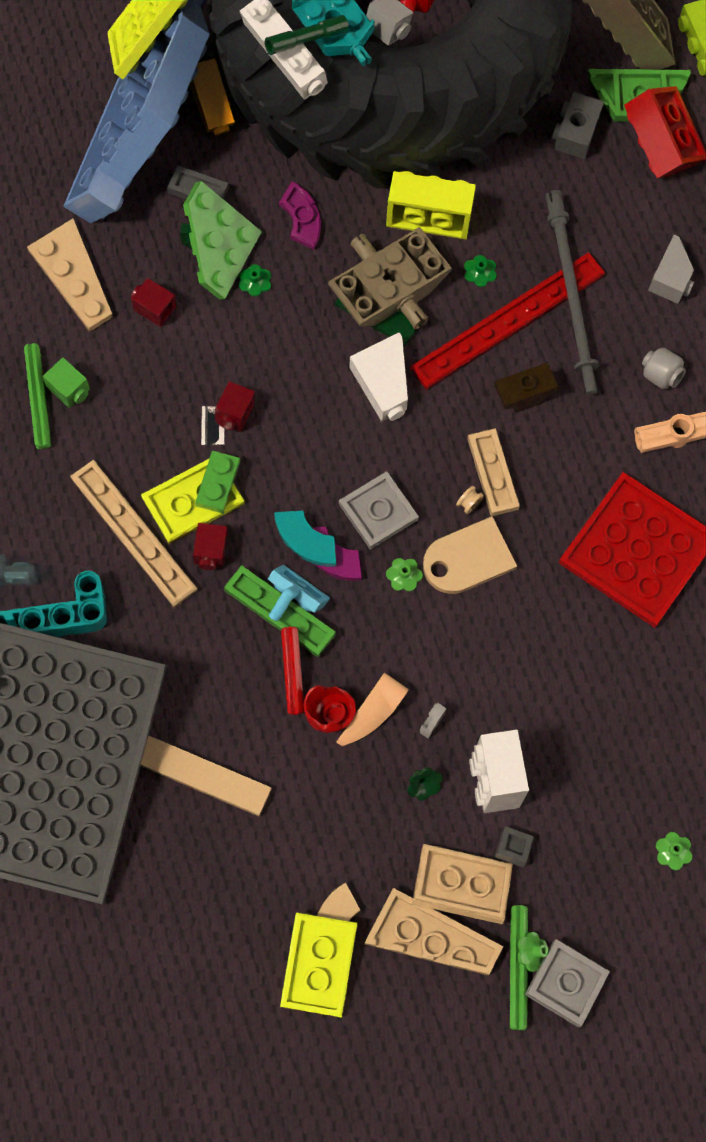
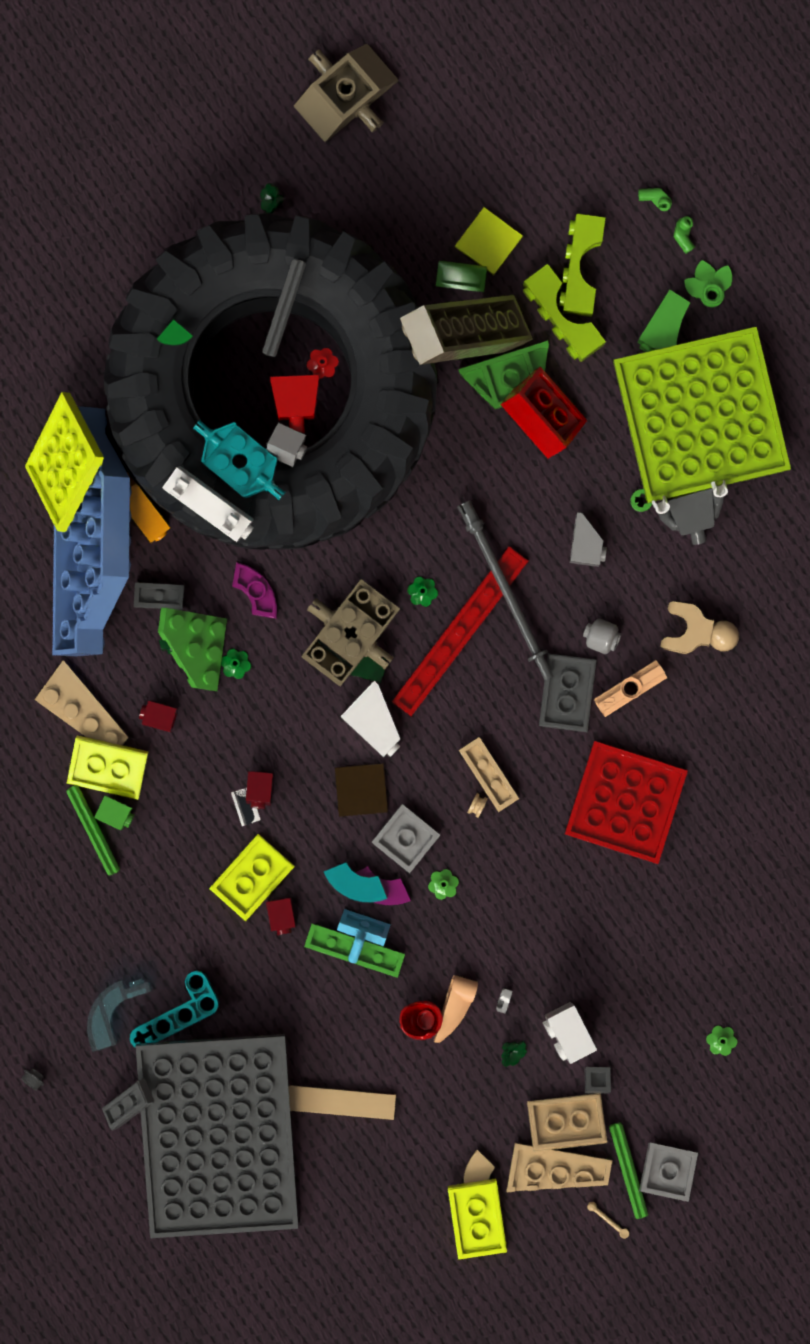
camera: 20 degrees left, 15 degrees up
(78, 335) = (107, 767): none -> neon yellow tile
(134, 533) = (214, 922): tan tile -> none
(217, 482) = (268, 859): bright green plate -> none
(290, 39) = (216, 507): dark green piece -> none
(292, 670) = (381, 997): red axle -> none
(345, 446) = (361, 790): none -> dark brown tile
(430, 203) = (363, 552): neon yellow brick -> none
(470, 556) = (492, 852): tan tile -> none
(490, 1042) = (624, 1233): none -> tan hinge
(526, 388) = (493, 694): dark brown brick -> none
(532, 951) = (635, 1156): bright green plant -> none
(581, 111) = (472, 414): dark grey brick -> none
(607, 418) = (568, 693): none -> dark grey tile

